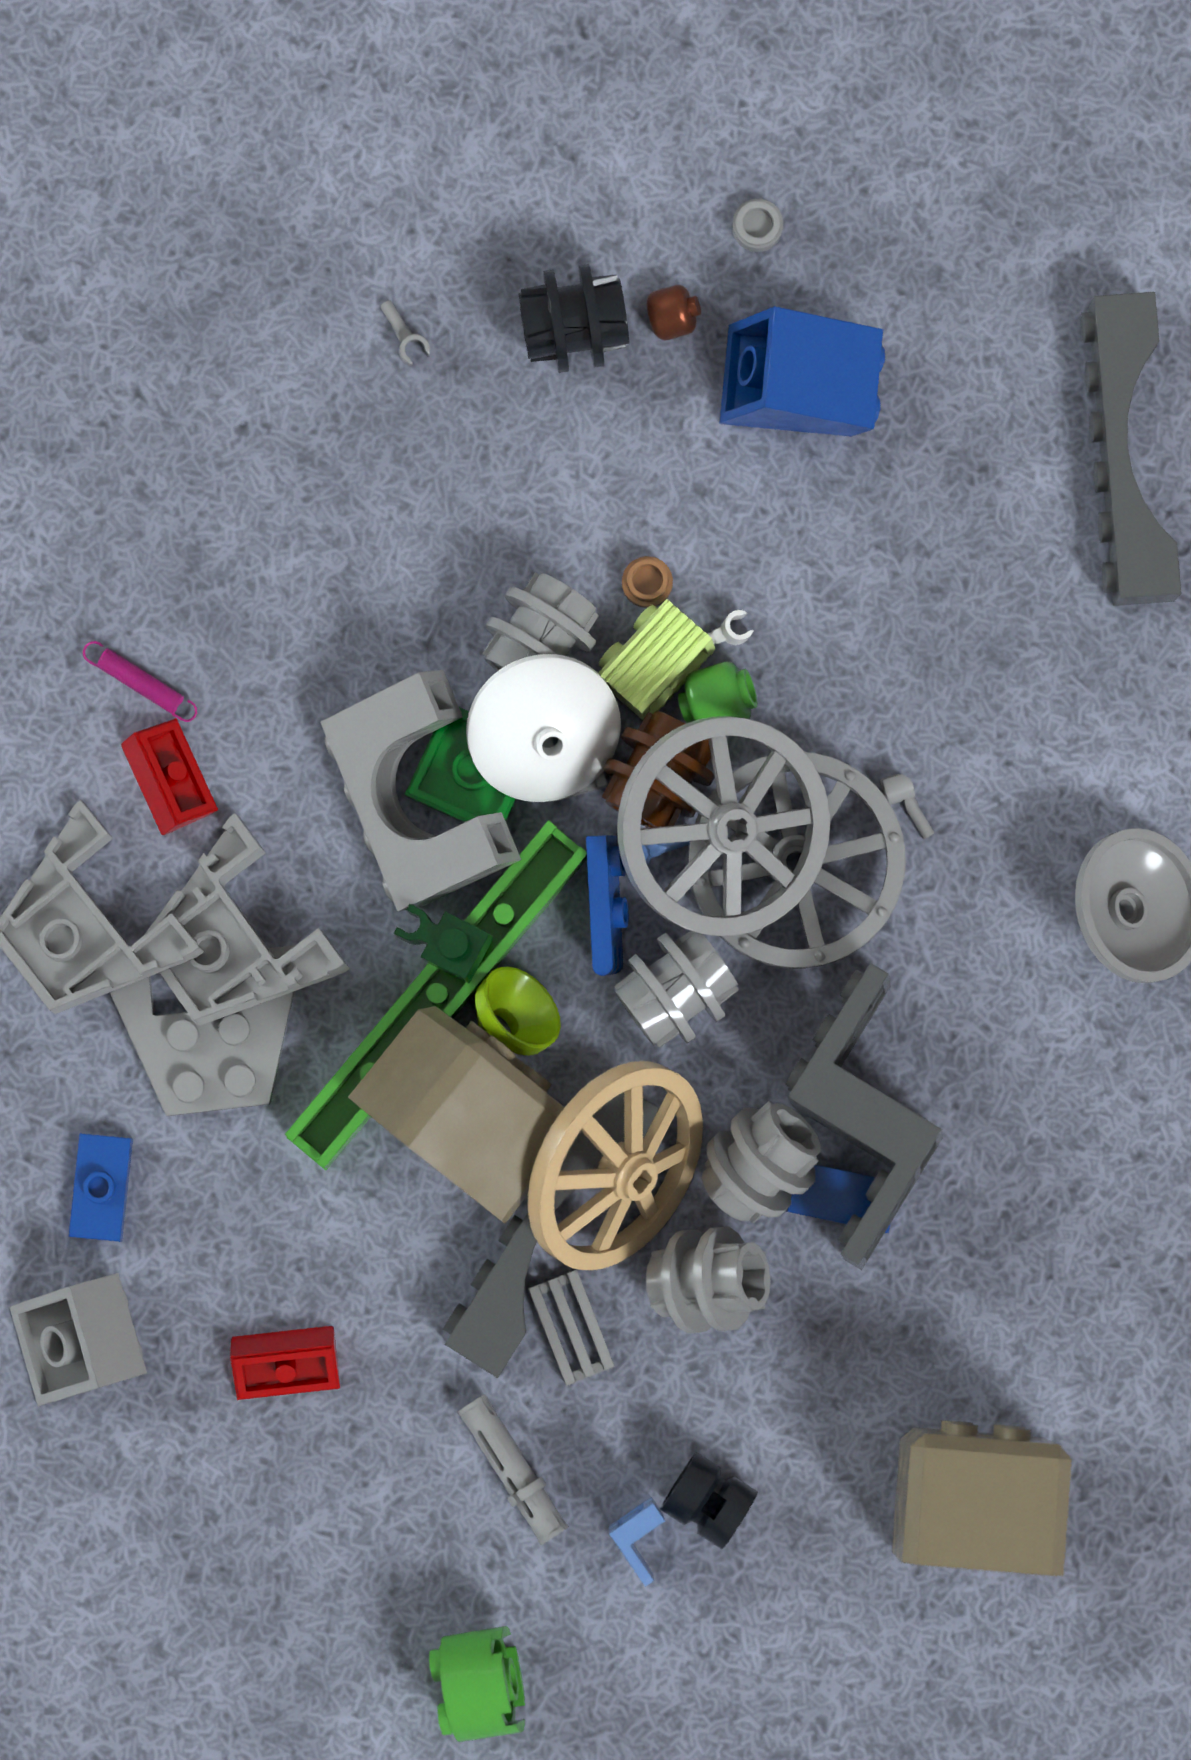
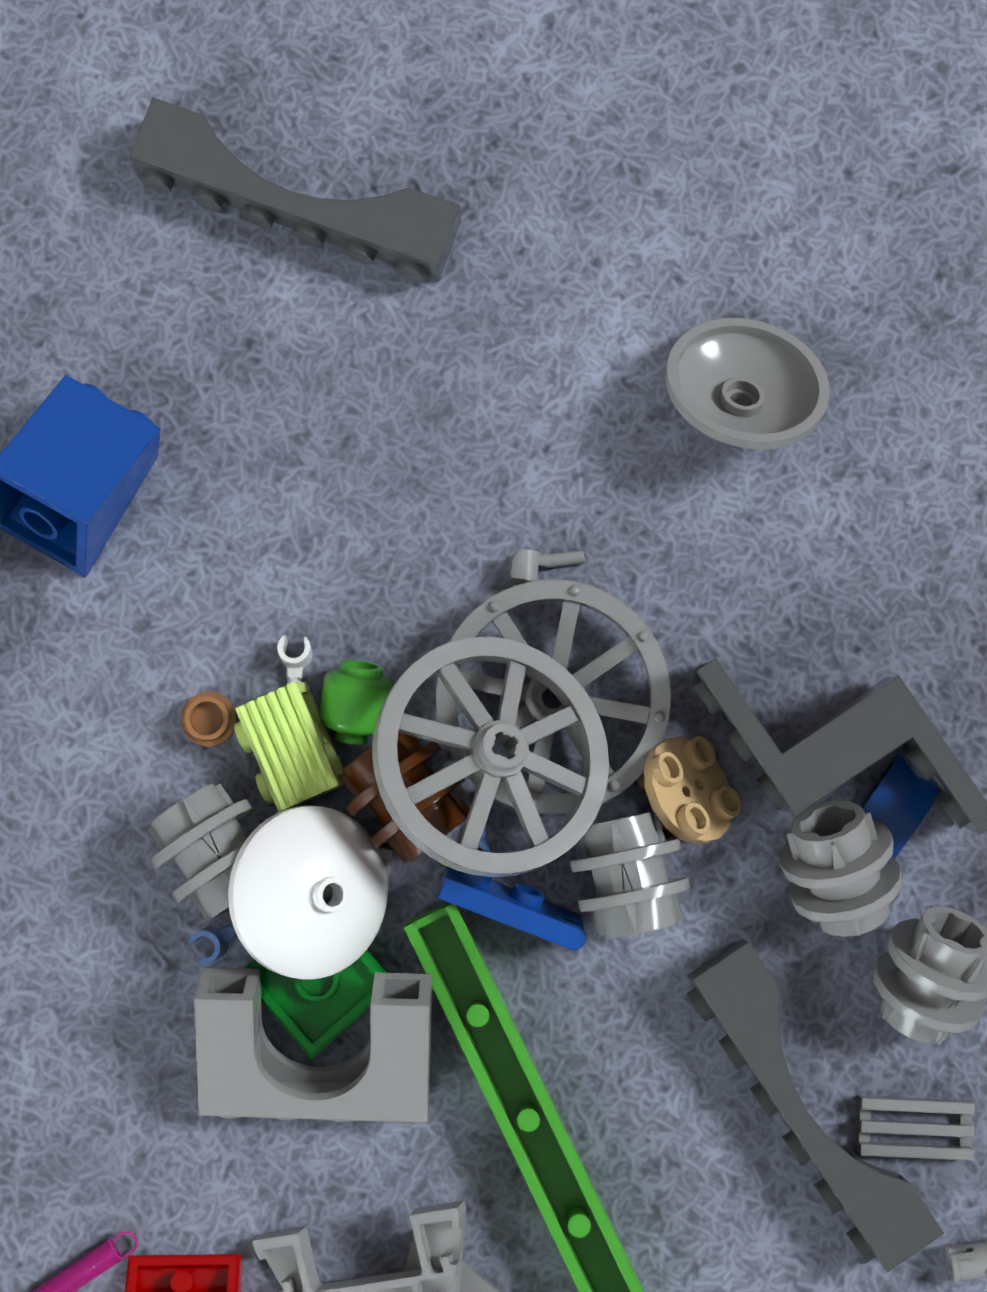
camera: 65 degrees left, 0 degrees up
(450, 944) = (486, 1086): dark green plate -> none
(462, 1107) = (669, 1156): dark tan plate -> none
(469, 675) = (221, 940): none -> medium blue hand
(524, 1007) = (577, 1031): lime piece -> none
(624, 1172) = (797, 1012): tan wheel -> none
(770, 1009) = (689, 790): none -> tan plate

